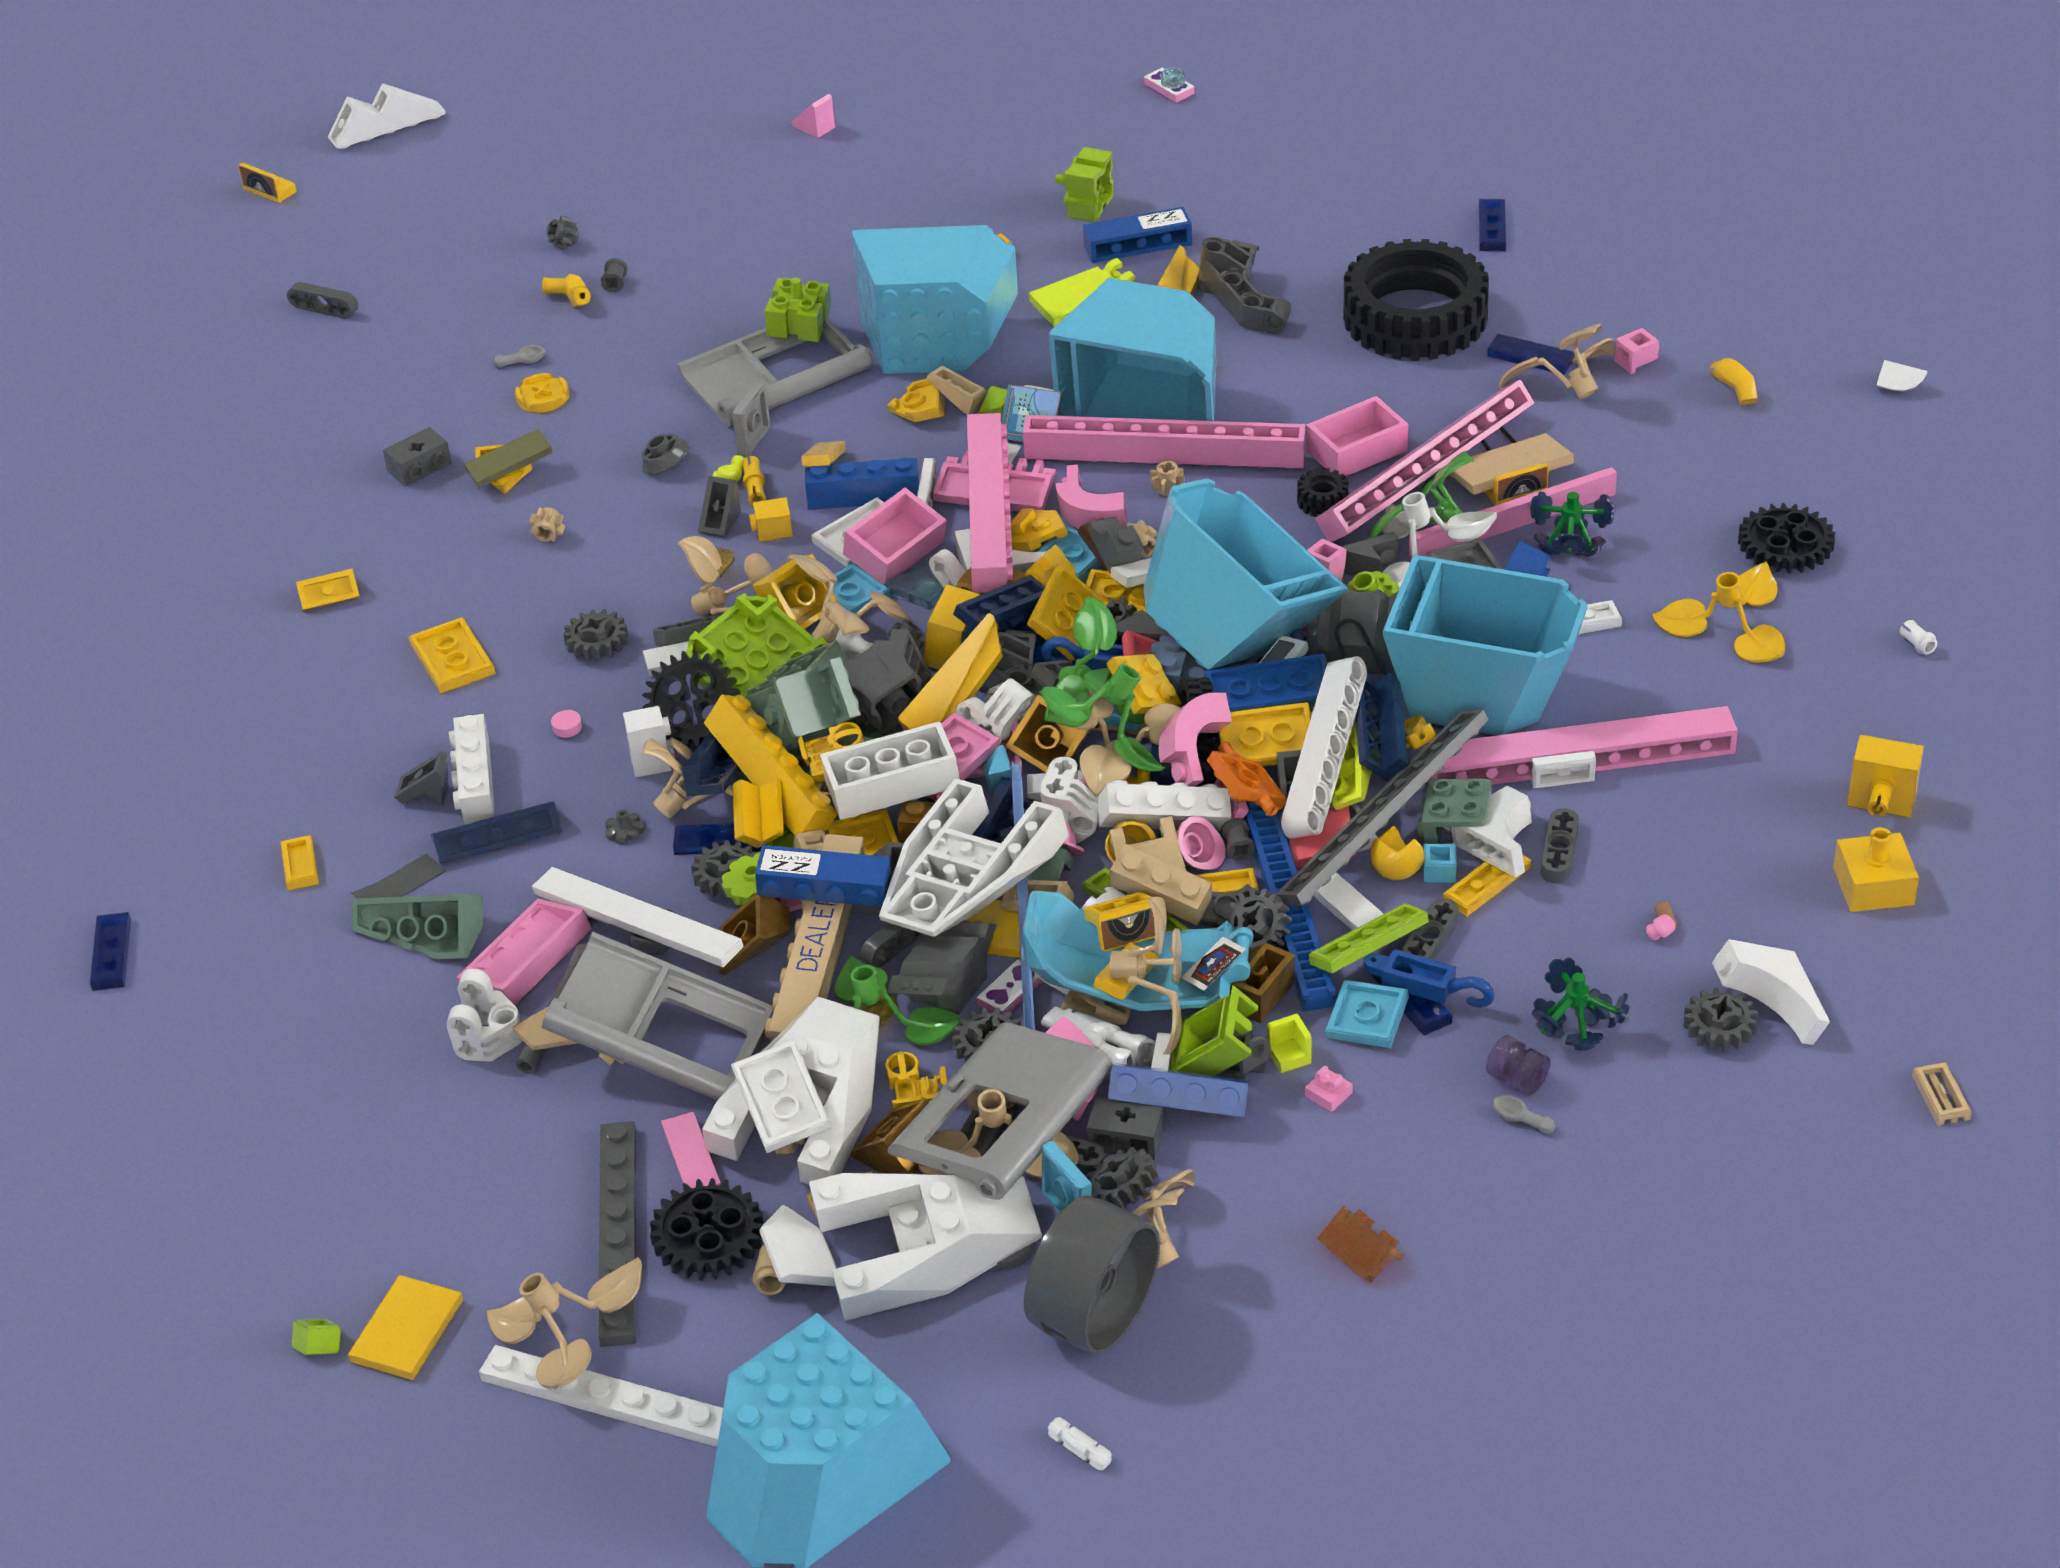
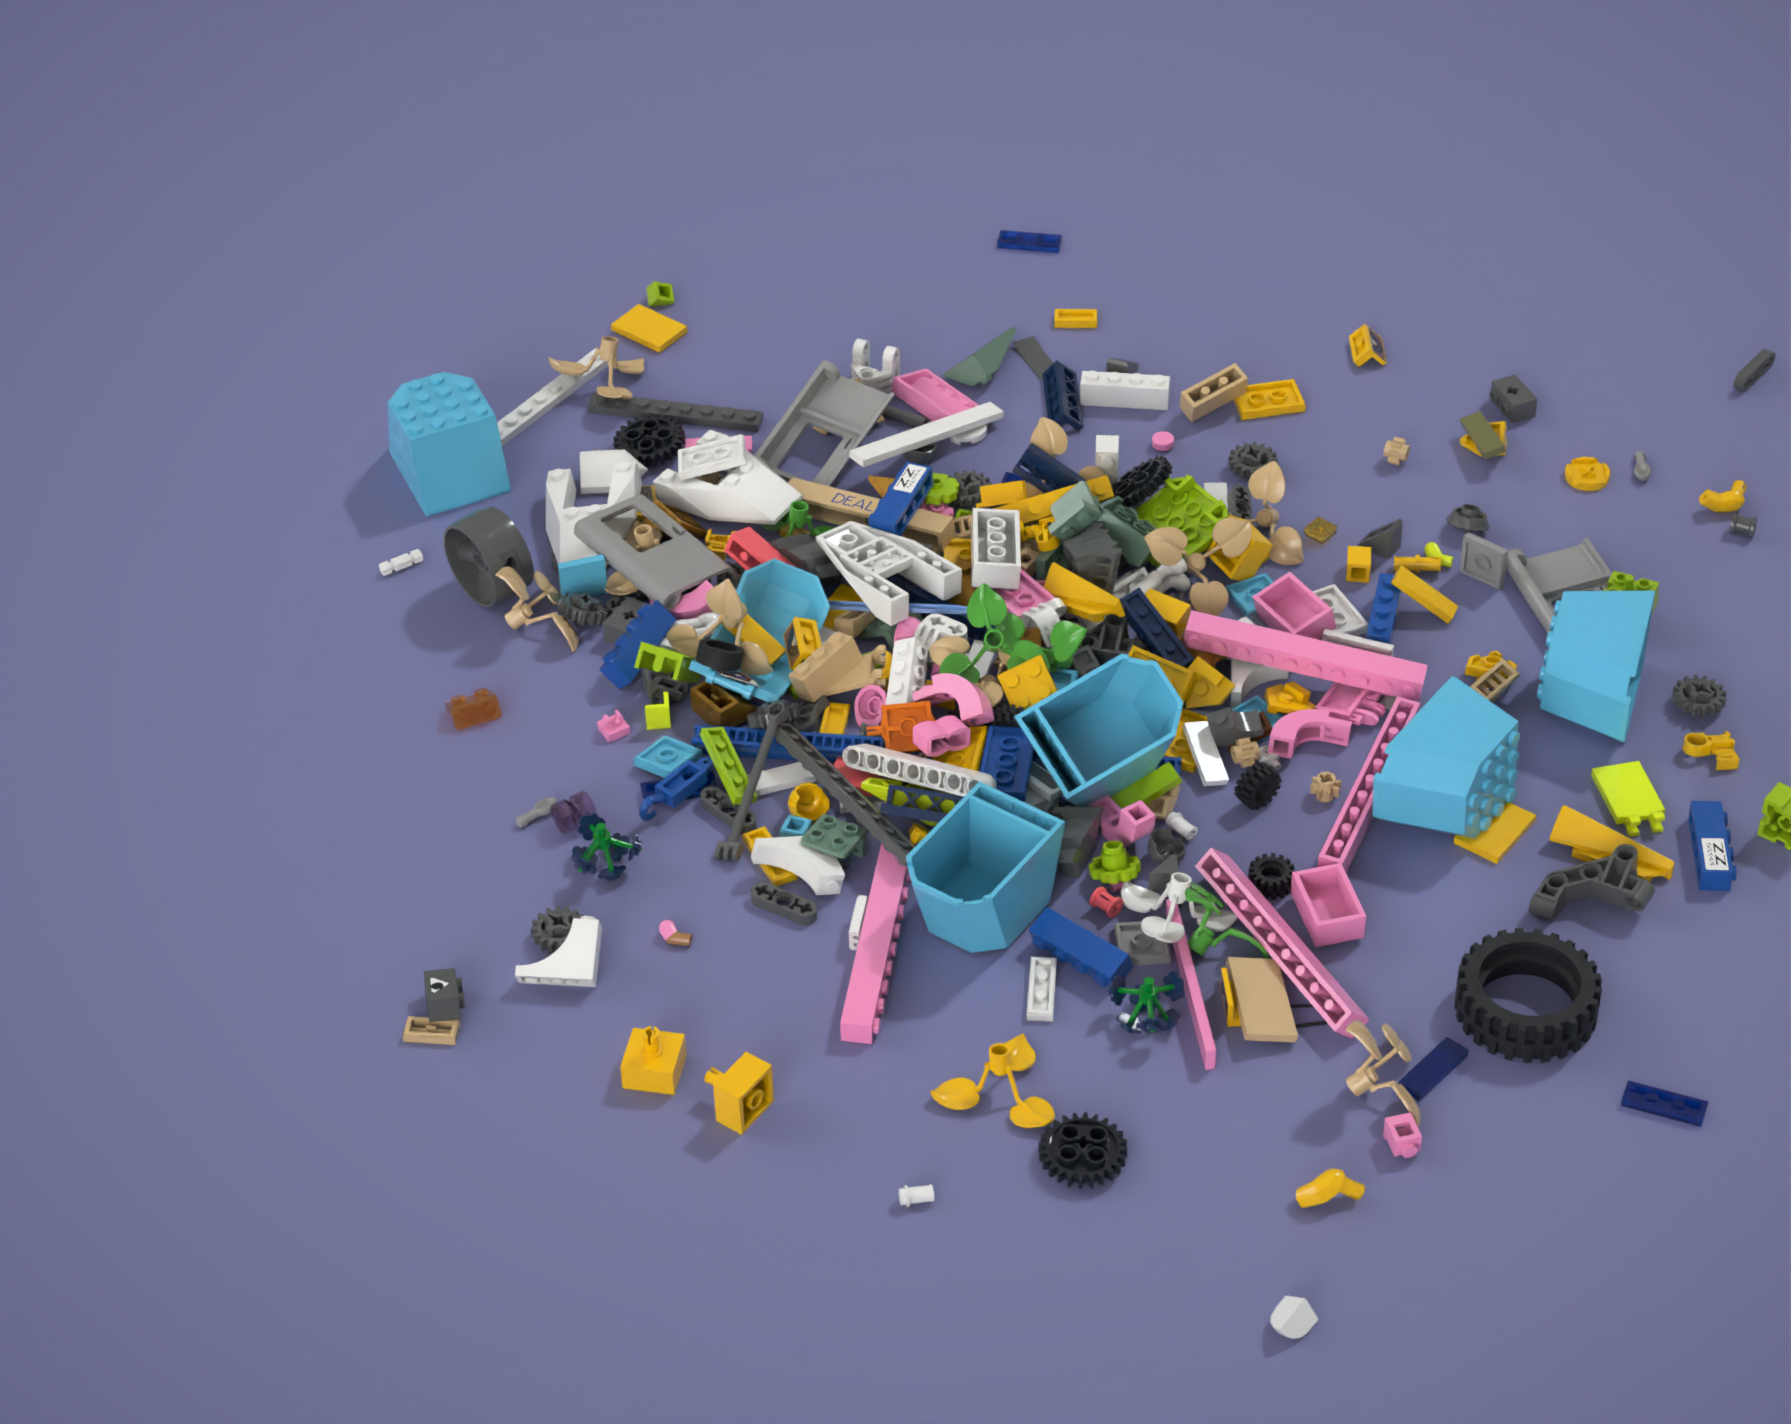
camera: 105 degrees right, 0 degrees up
(474, 679) = (1213, 392): none -> tan brick
(971, 1000) = (751, 549): none -> coral brick
(1210, 977) = (719, 655): none -> black tyre
(1263, 734) = (942, 735): none -> bright pink brick
(1499, 910) = (732, 848): none -> dark grey hinge
(1897, 1083) = (443, 994): none -> dark grey brick

